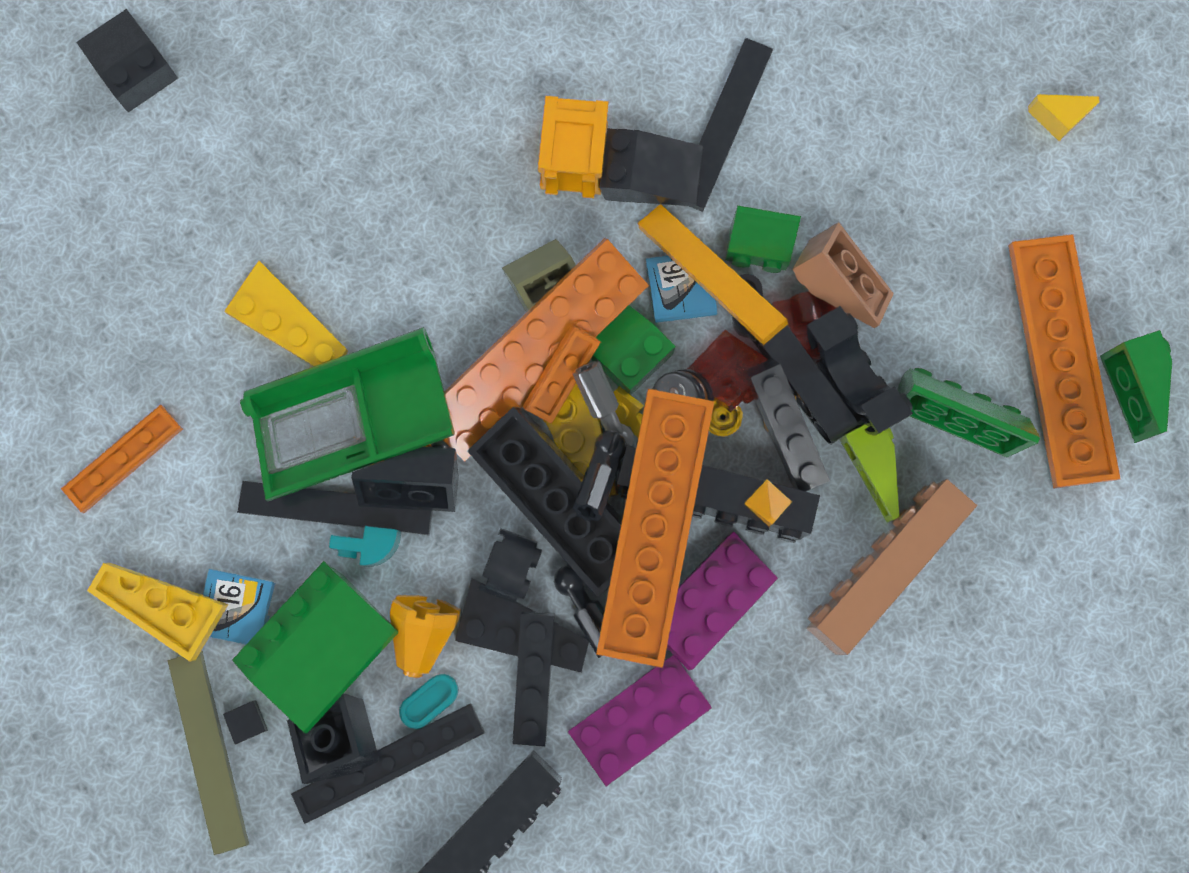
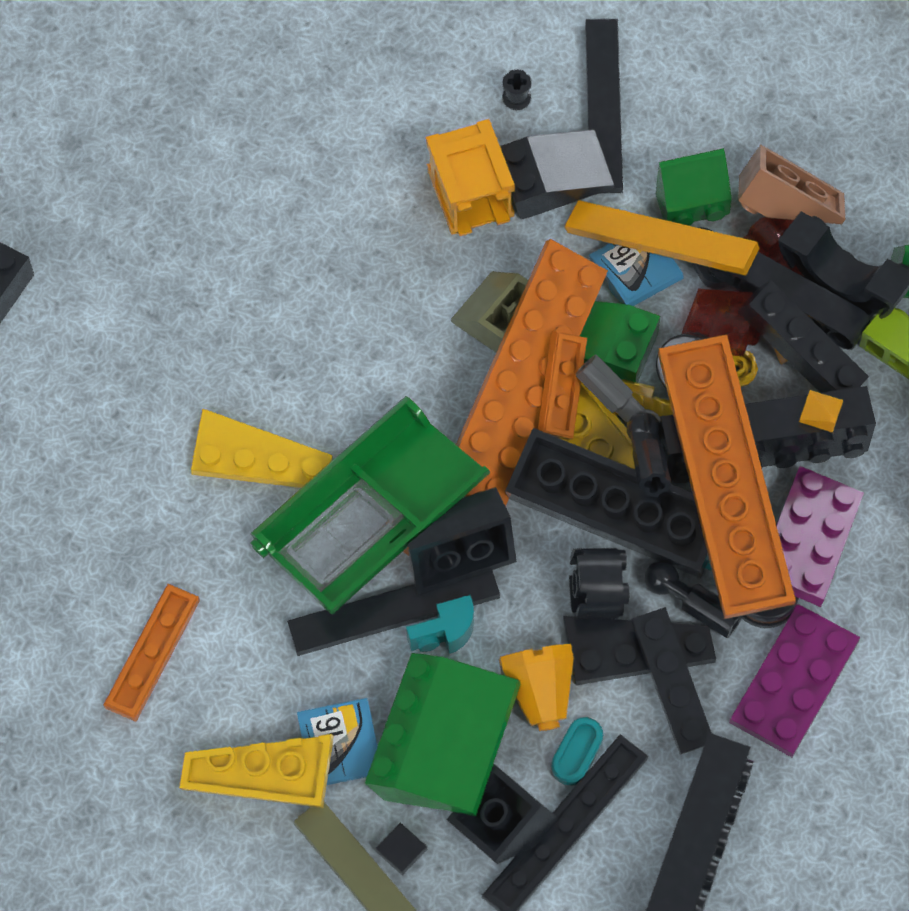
camera: 20 degrees left, 15 degrees down
(649, 72) = (516, 89): none -> black bush

